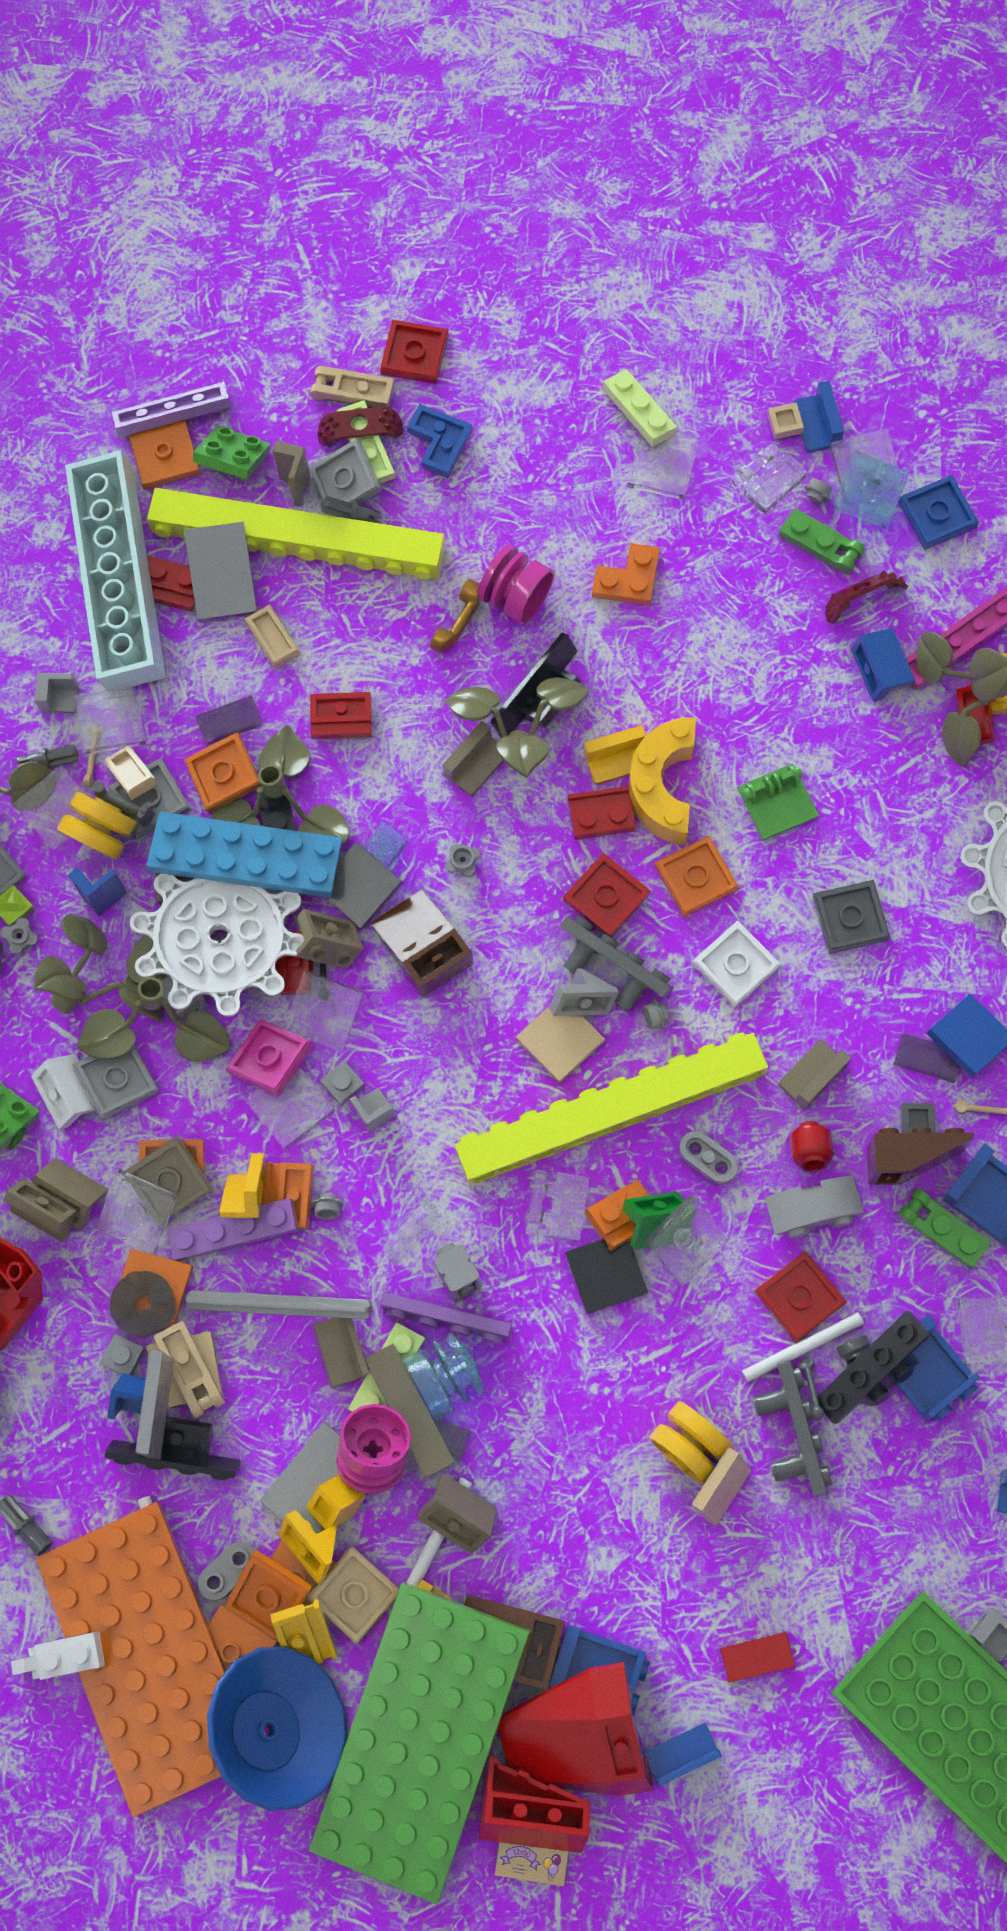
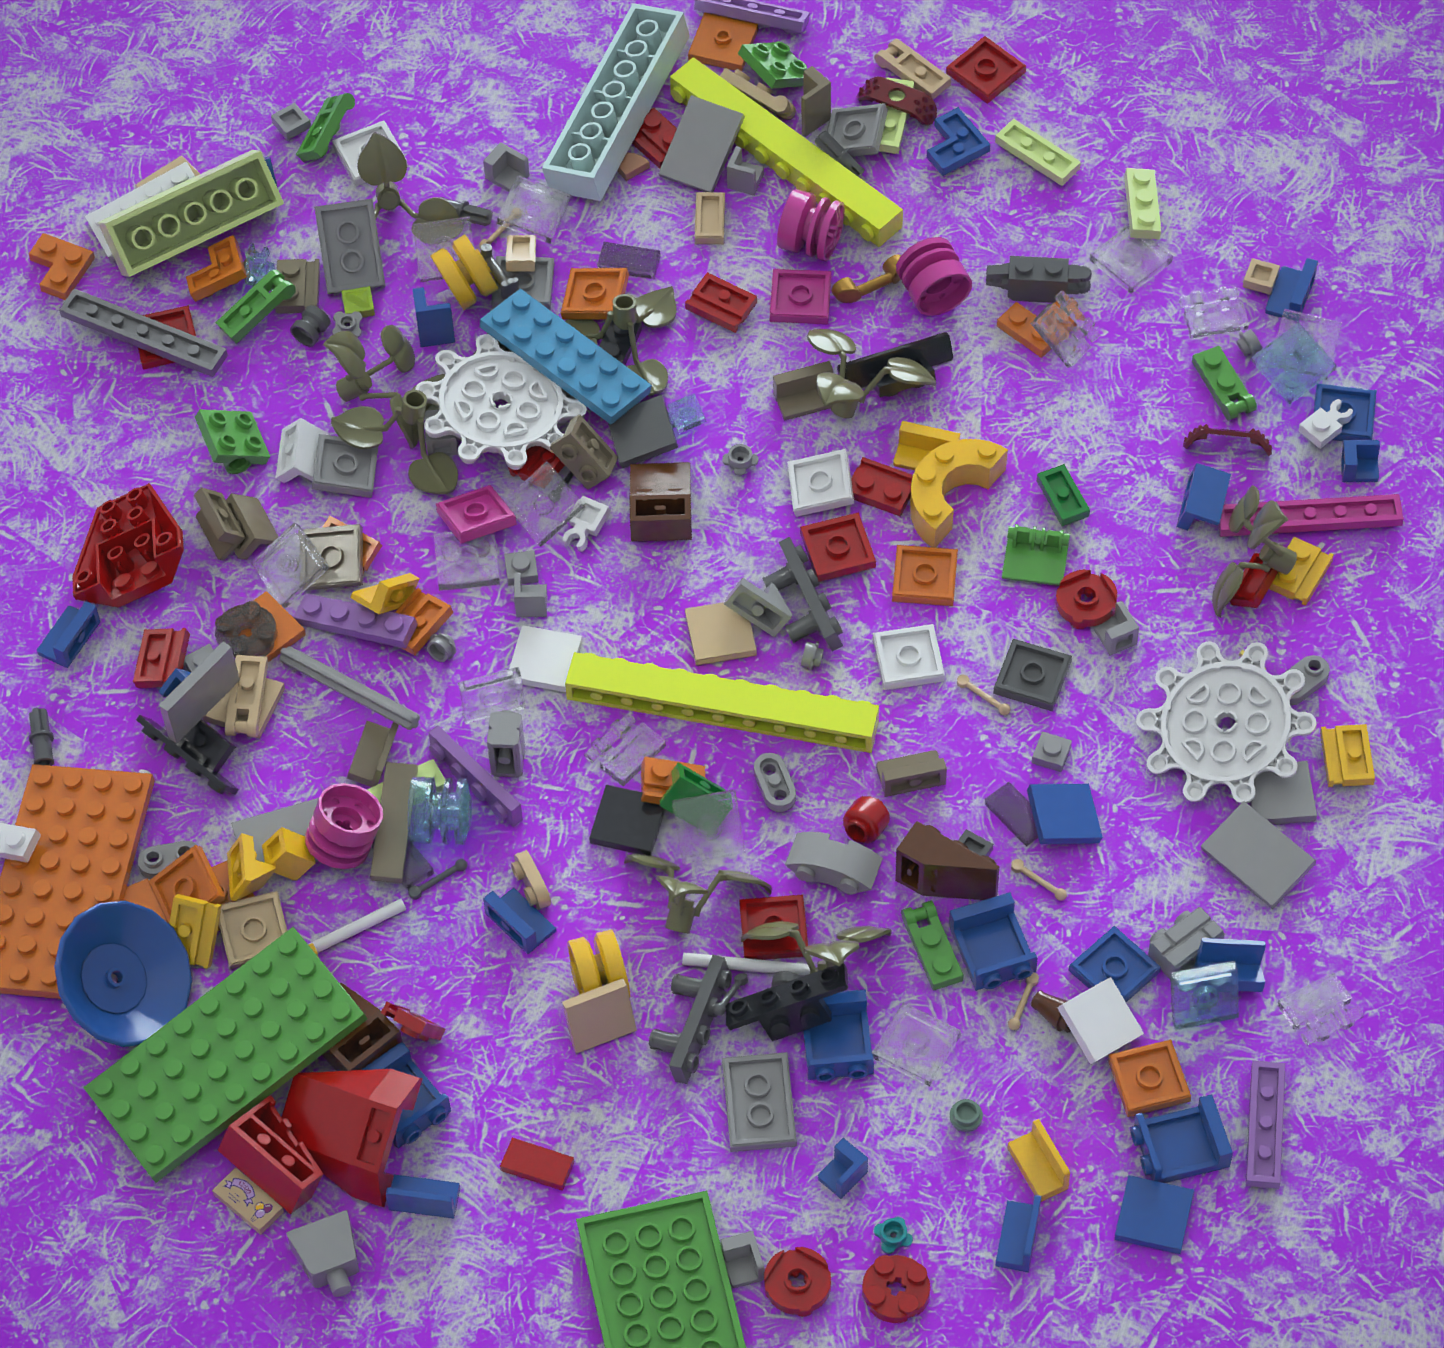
camera: 30 degrees right, 15 degrees down
(81, 1376) = (159, 656): none -> red plate
(168, 623) = (633, 165): none -> nougat tile
(236, 489) = (760, 94): none -> tan plate
(275, 577) = (743, 175): none -> light grey panel
(372, 1003) = (586, 522): none -> white plate
(375, 595) = (805, 223): none -> dark pink wheel
(404, 667) = (800, 296): none -> dark pink tile
(425, 1160) = (545, 657): none -> white tile
(458, 1514) = (376, 917): dark tan panel -> none
(468, 1460) = (416, 891): none -> dark grey hinge
(516, 408) = (1037, 152): none -> yellowish green plate
(549, 841) = (820, 482): none -> white tile
(553, 1381) = (535, 890): none -> tan plate
(565, 1598) = (413, 1023): none -> red plate
(578, 1429) = (518, 919): none -> blue panel
(603, 532) = (1038, 278): none -> dark grey hinge
(640, 1870) = (326, 1252): none -> light grey torso
(657, 575) = (1061, 334): none -> clear plate
(723, 1334) = (680, 908): none -> olive plant
(762, 729) = (1063, 495): none -> green plate
(797, 958) = (963, 682): none -> tan hinge
(852, 834) = (1081, 613): none -> red plate
(893, 831) = (1118, 631): none -> light grey panel
(897, 1312) = (831, 953): none -> olive plant
(902, 1472) = (759, 1102): none -> light grey tile
(916, 980) = (1051, 751): none -> light grey plate
(935, 533) = (1323, 425): none -> white plate
(983, 551) = (1360, 460): none -> blue panel

